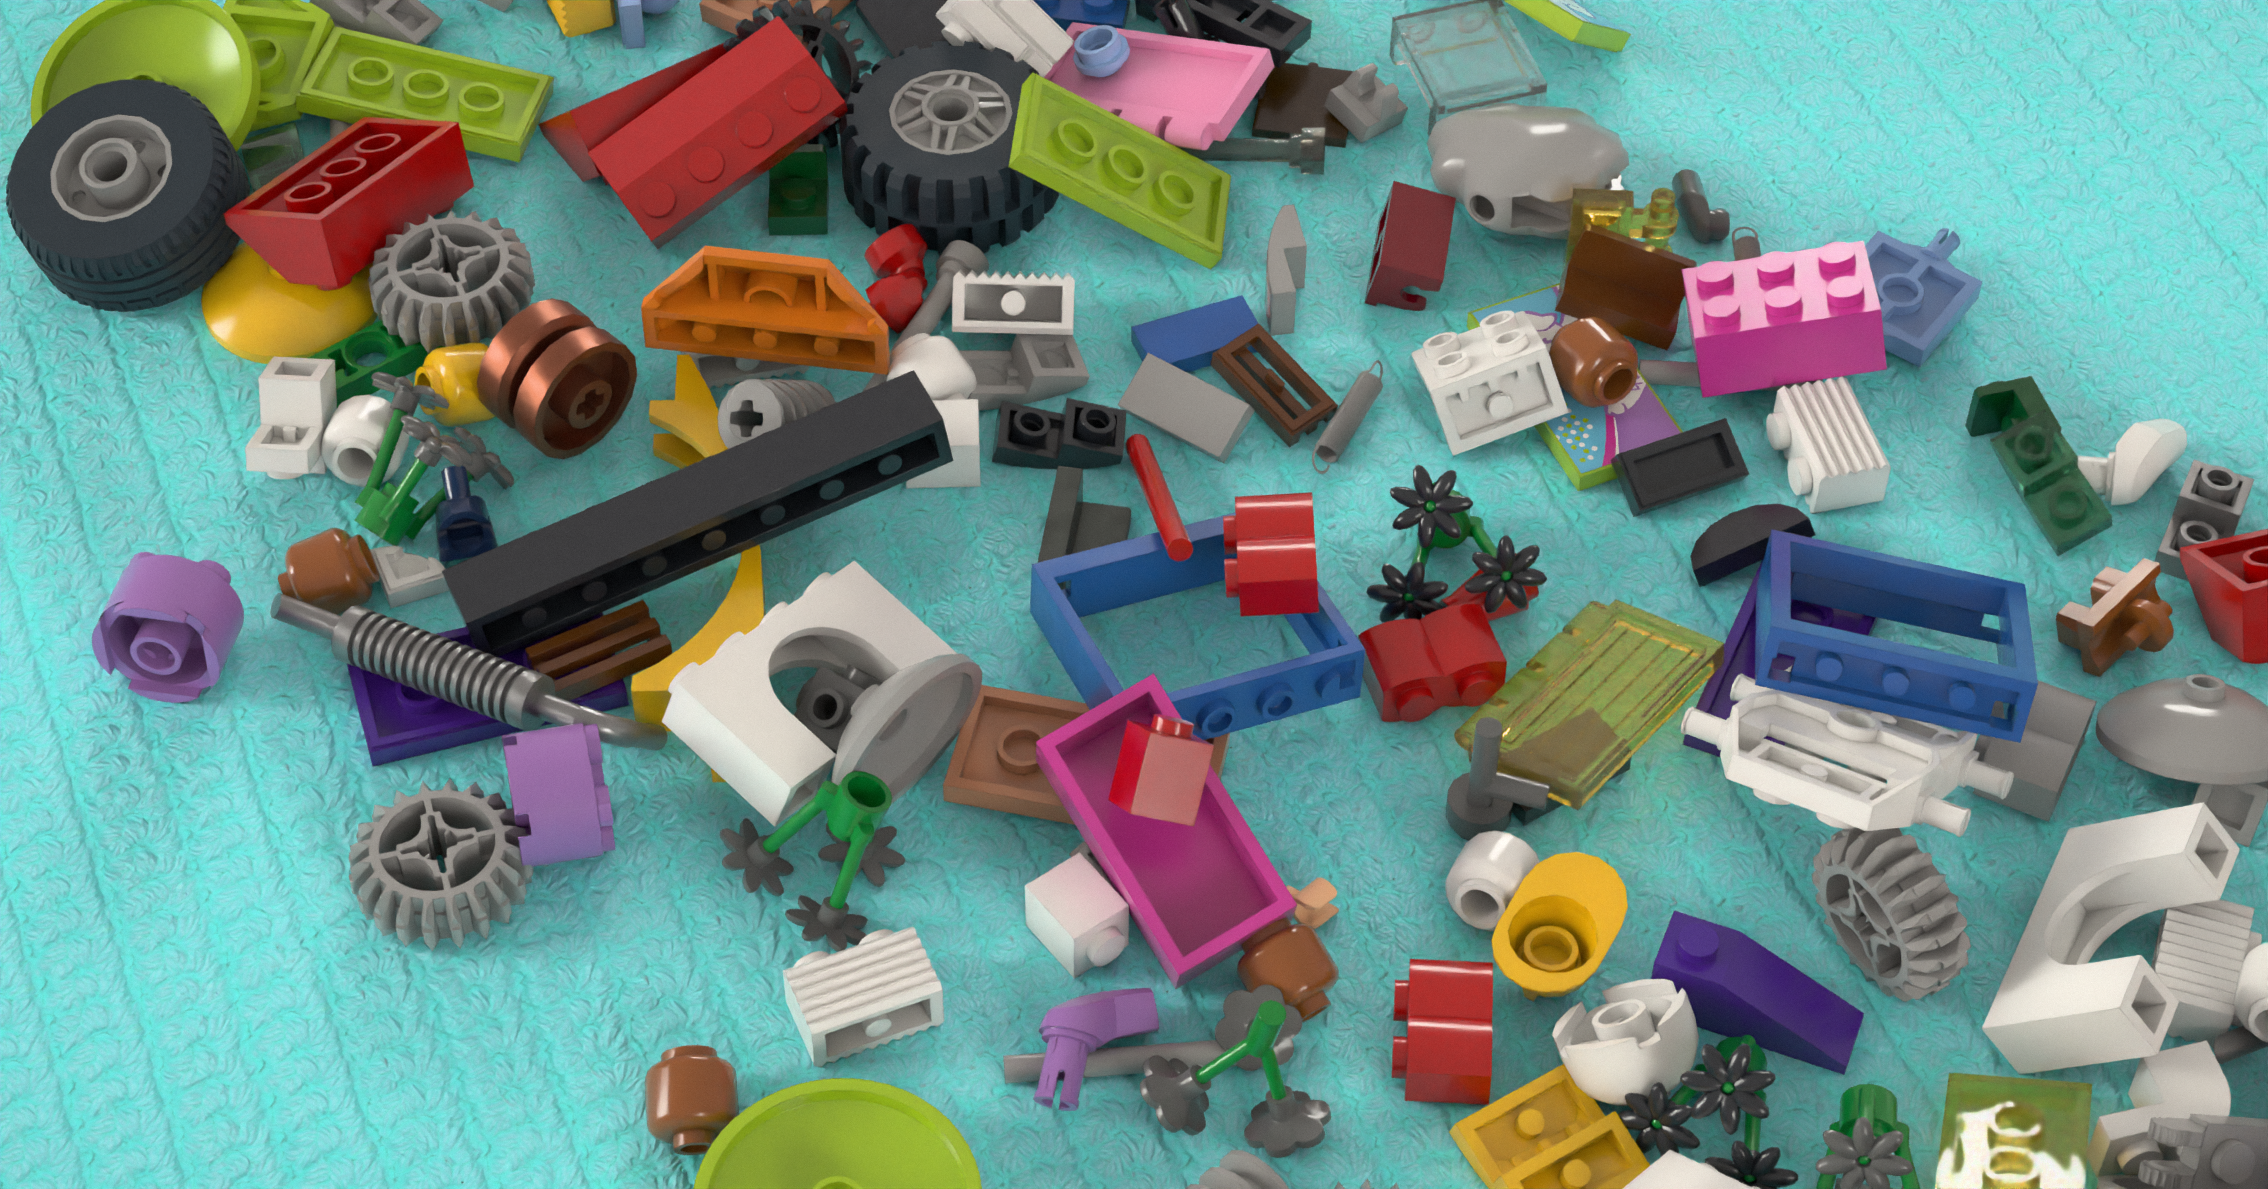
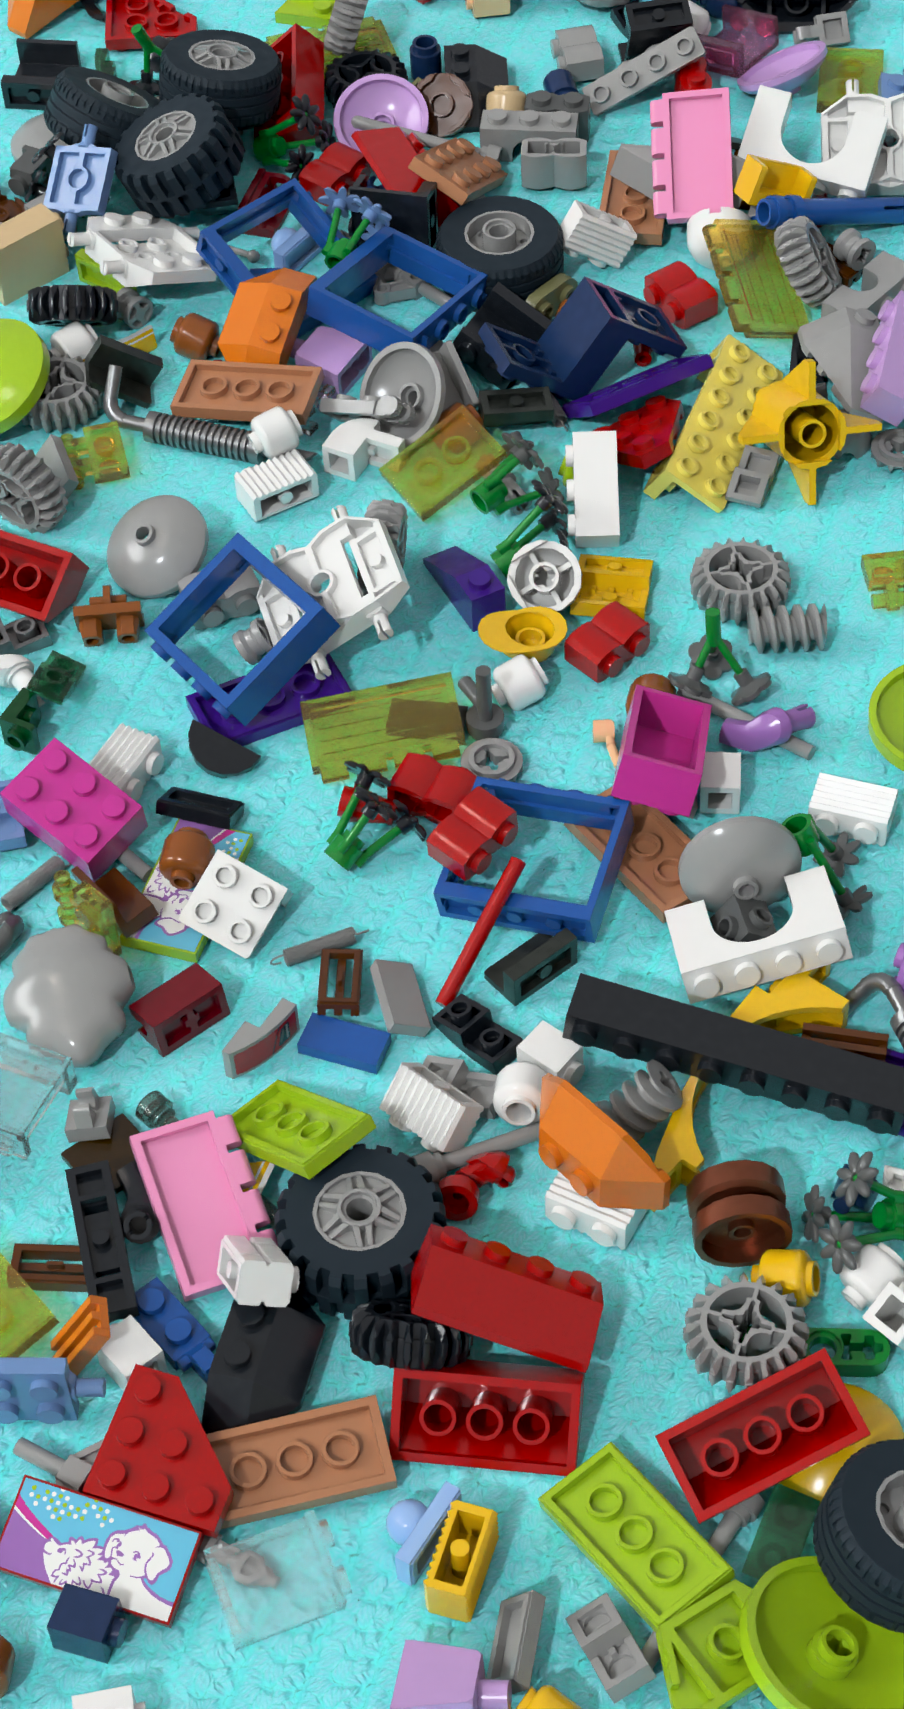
camera: 135 degrees left, 0 degrees up
(1100, 51) = (199, 1228): light blue plate -> none
(1161, 770) = (662, 718): brick -> none
(1396, 741) = (499, 751): none -> light grey gear
(2078, 1013) = (272, 522): white arch -> none

